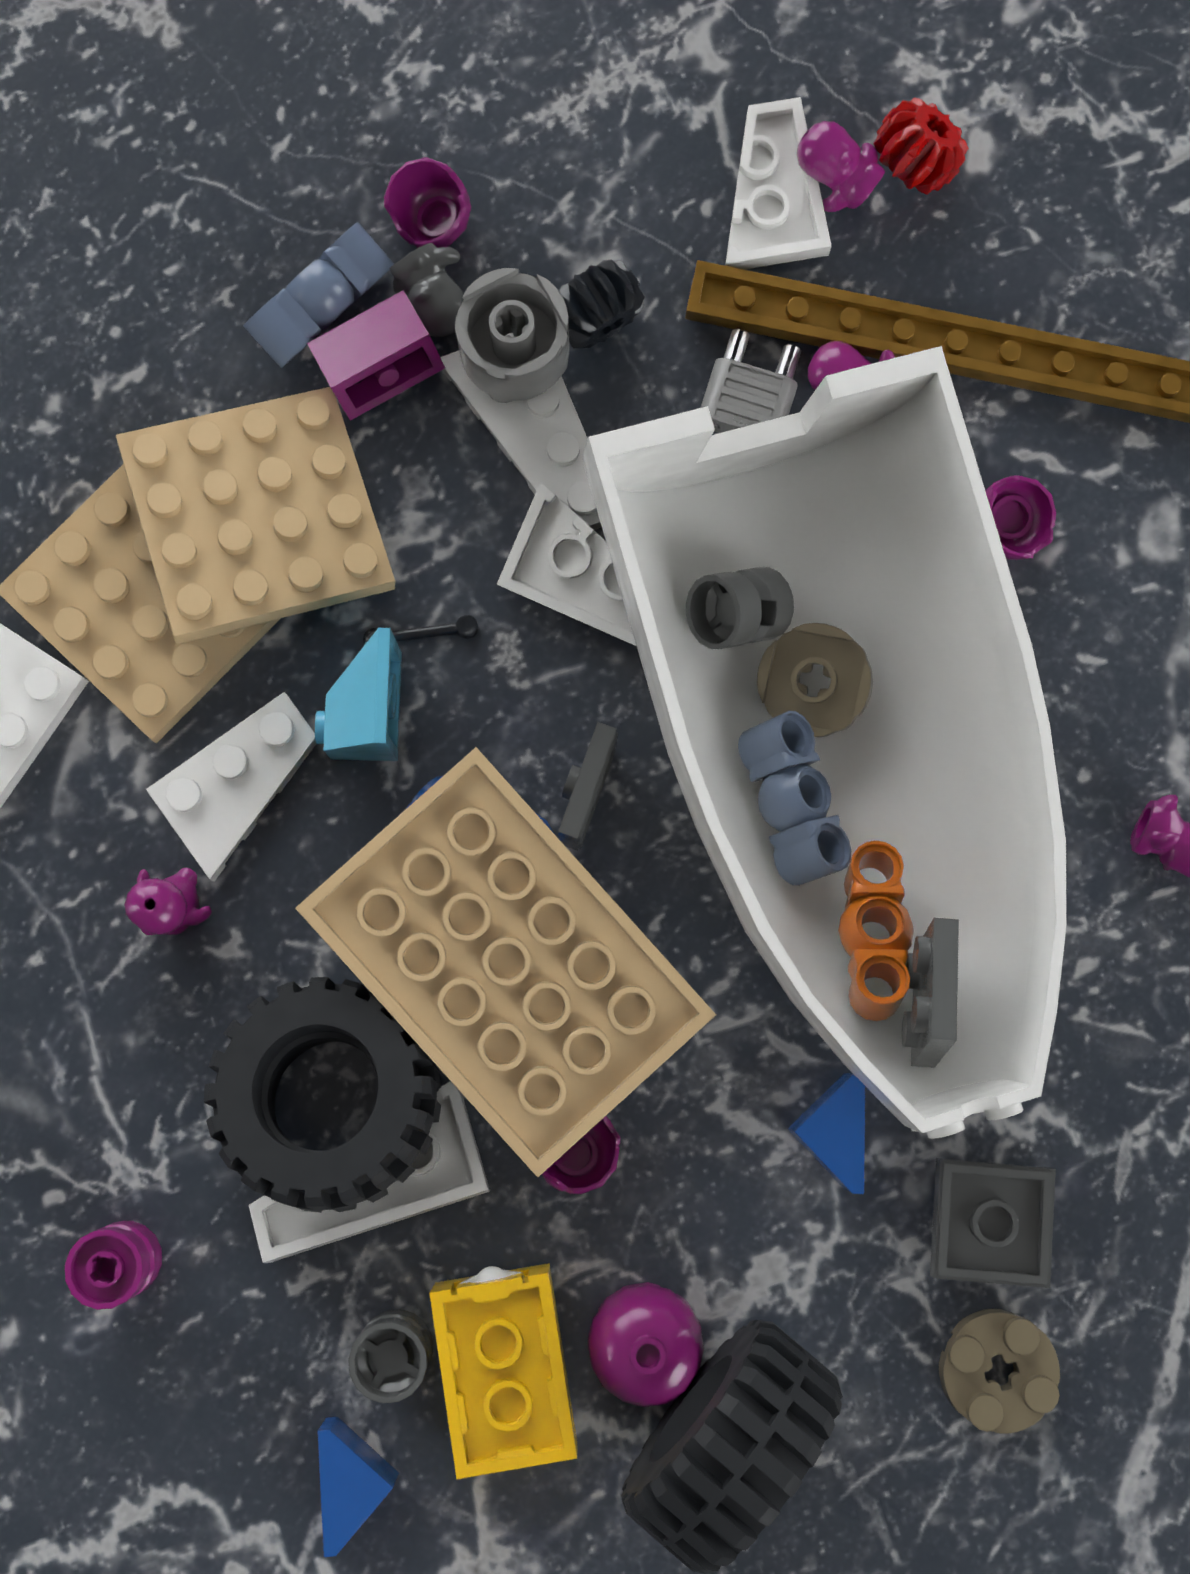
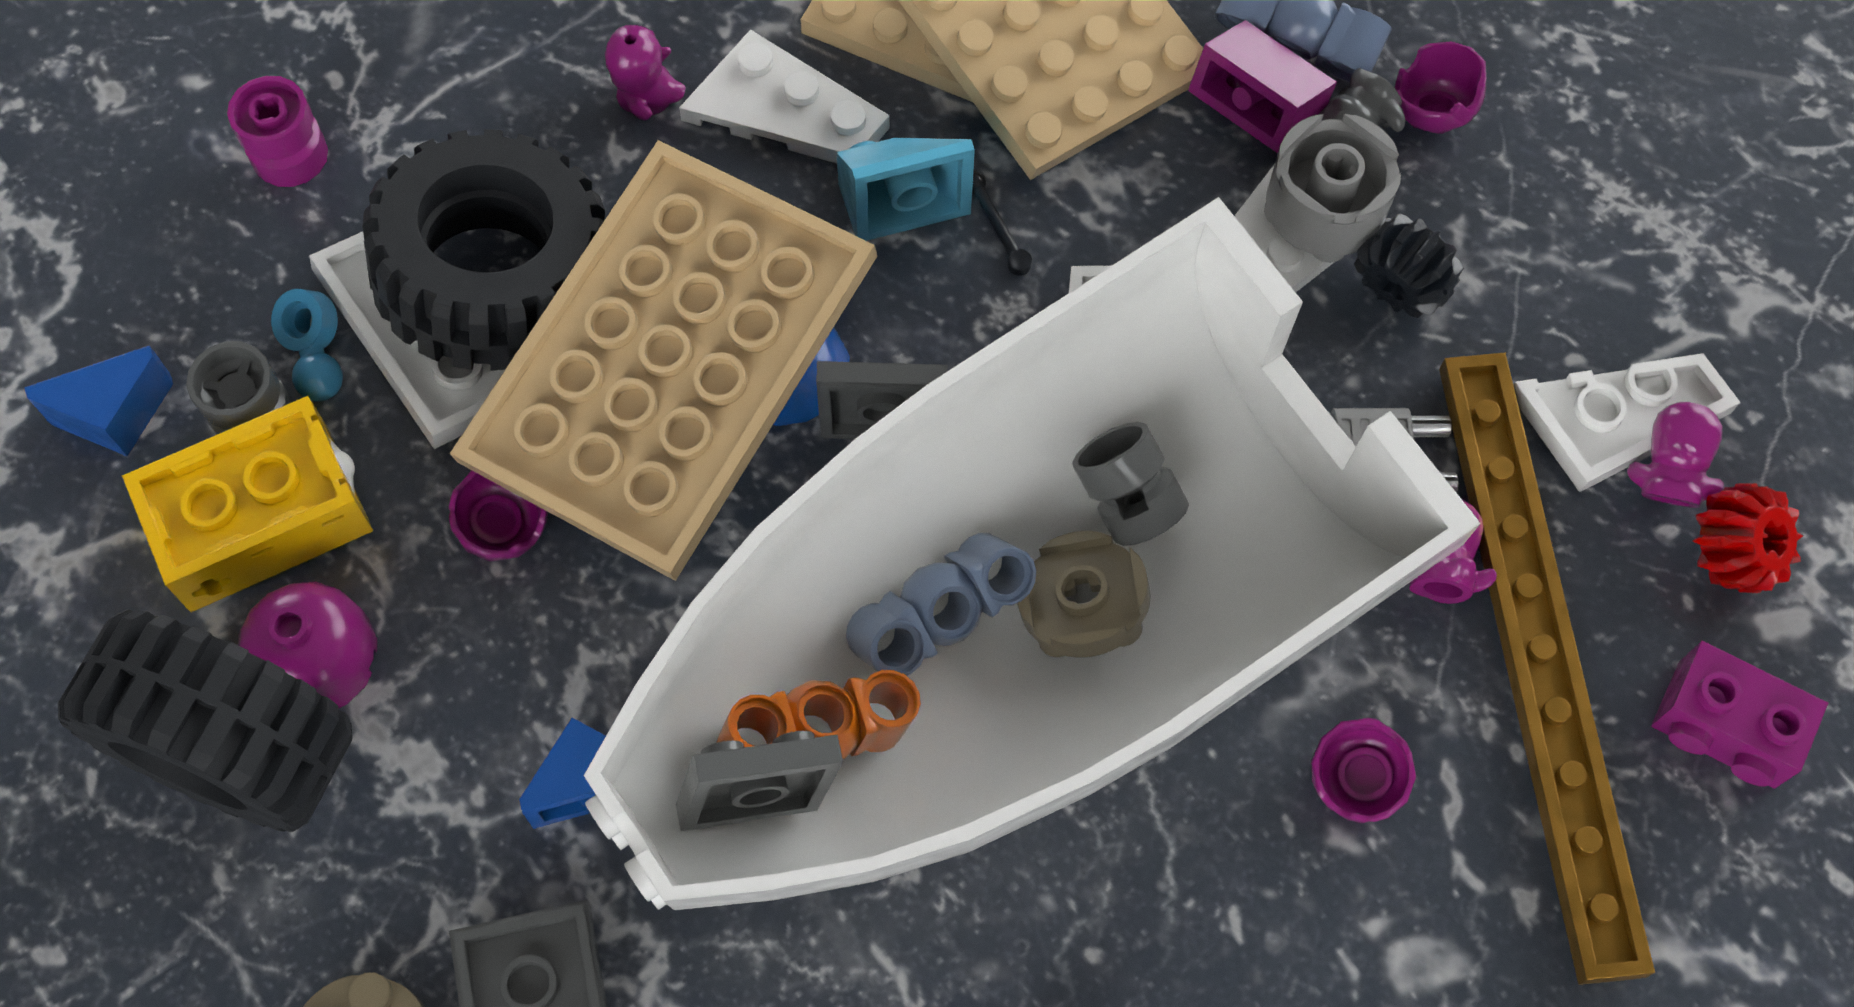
camera: 75 degrees right, 15 degrees down
(376, 1281) = (315, 372): none -> dark azure plate
(1053, 219) = (1739, 716): none -> magenta brick

